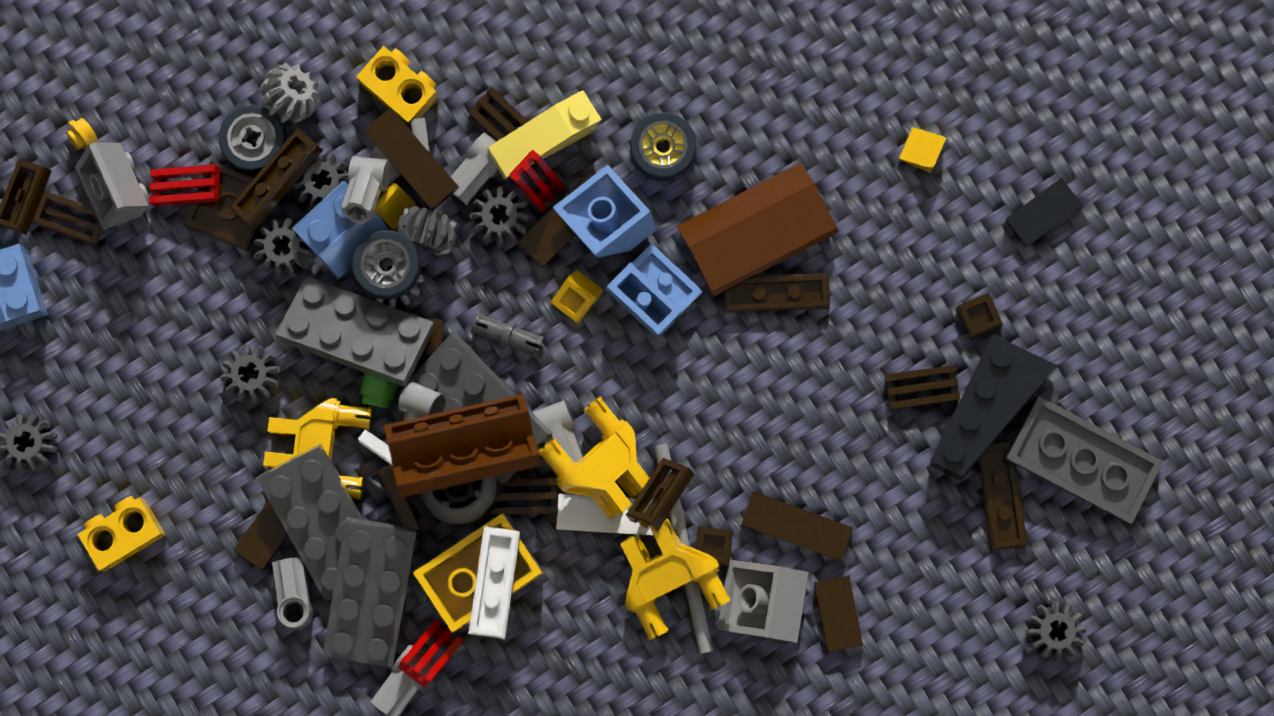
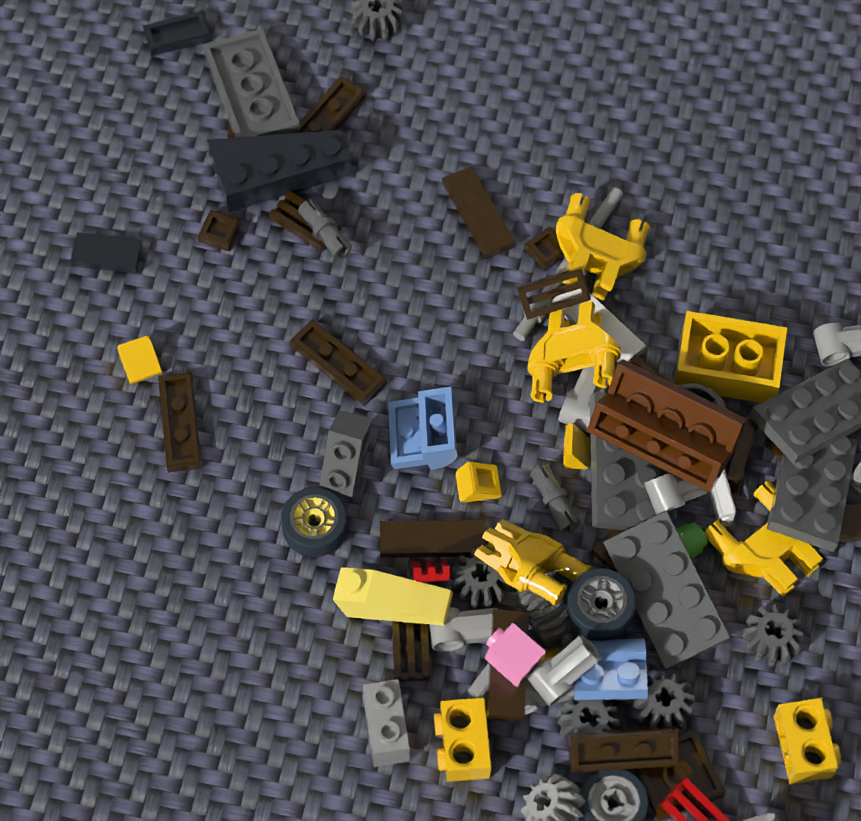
camera: 140 degrees left, 20 degrees down
(161, 308) = (797, 741): none -> yellow brick
(408, 159) = (513, 653): none -> bright pink brick
(443, 638) = (813, 331): red tile -> none
(462, 44) = (386, 723): none -> light grey brick
(481, 249) = (527, 558): none -> yellow connector
(494, 582) = (727, 329): white tile -> none
(531, 388) = (576, 448): none -> yellow slope
(606, 215) = (405, 504): medium blue slope -> none
(685, 209) = (345, 453): none -> dark grey brick
(757, 229) = (298, 403): reddish brown slope -> none
(763, 600) = (546, 182): light grey slope -> none
(838, 613) = (505, 141): dark brown tile -> none
(843, 132) = (179, 422): none -> dark brown tile
(893, 386) = (325, 229): none -> dark grey pin
(1200, 458) = (177, 33): none -> black tile

